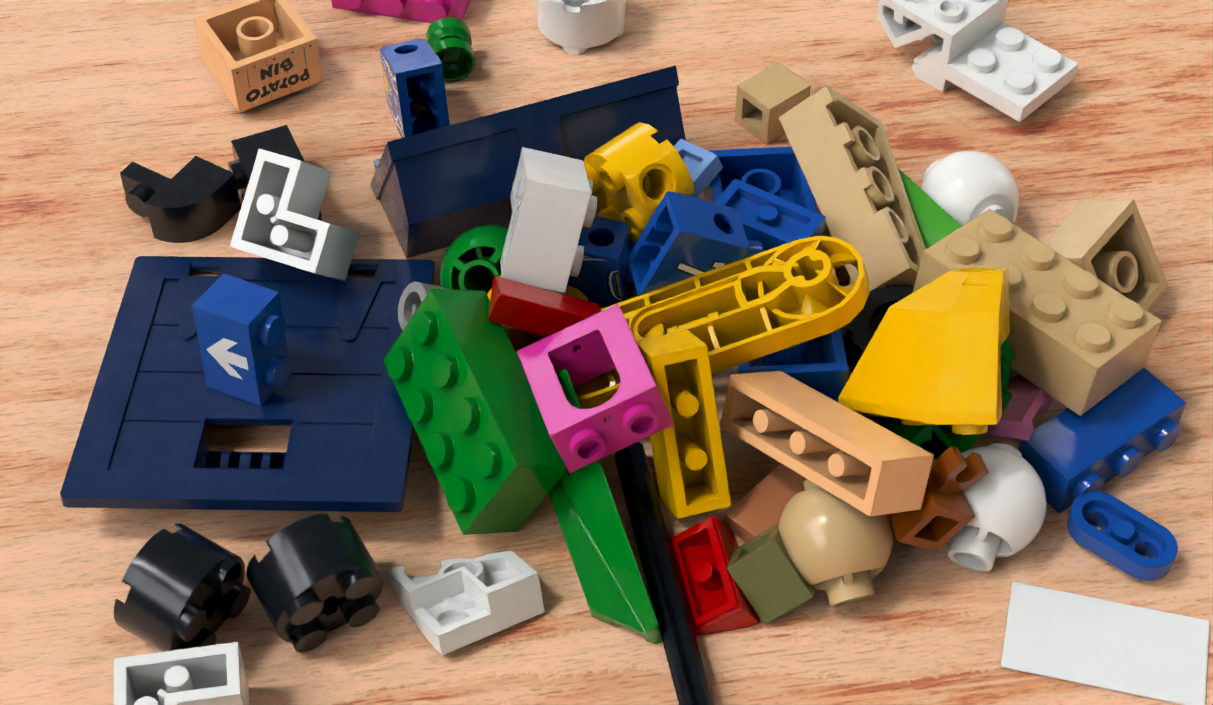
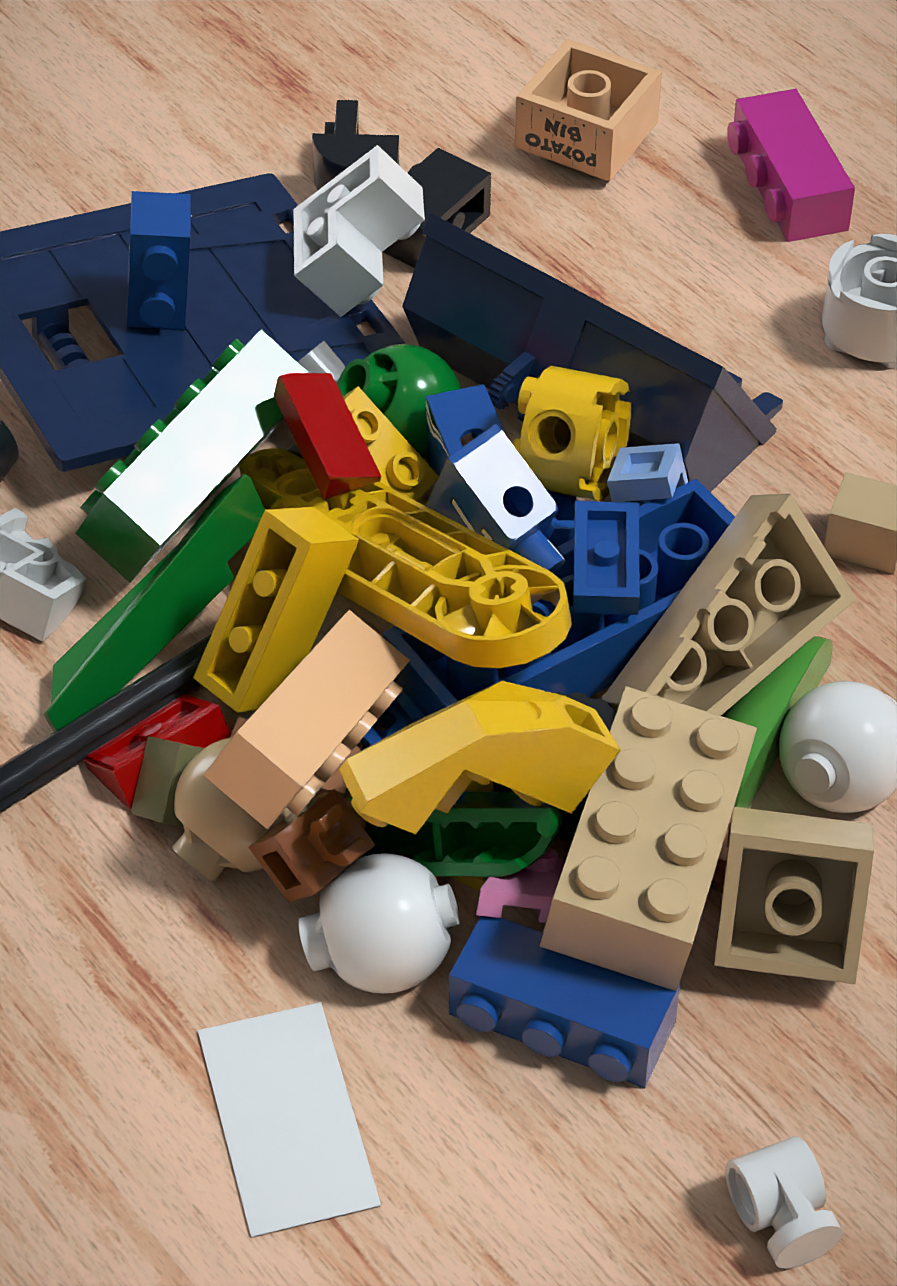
camera: 60 degrees right, 0 degrees up
(414, 77) = (625, 240): blue torso -> none
(452, 44) = (721, 244): green wheel -> none
(548, 212) = (430, 362): white brick -> none
(586, 352) = (208, 535): dark pink panel -> none
(1123, 535) = (432, 1075): blue plate -> none

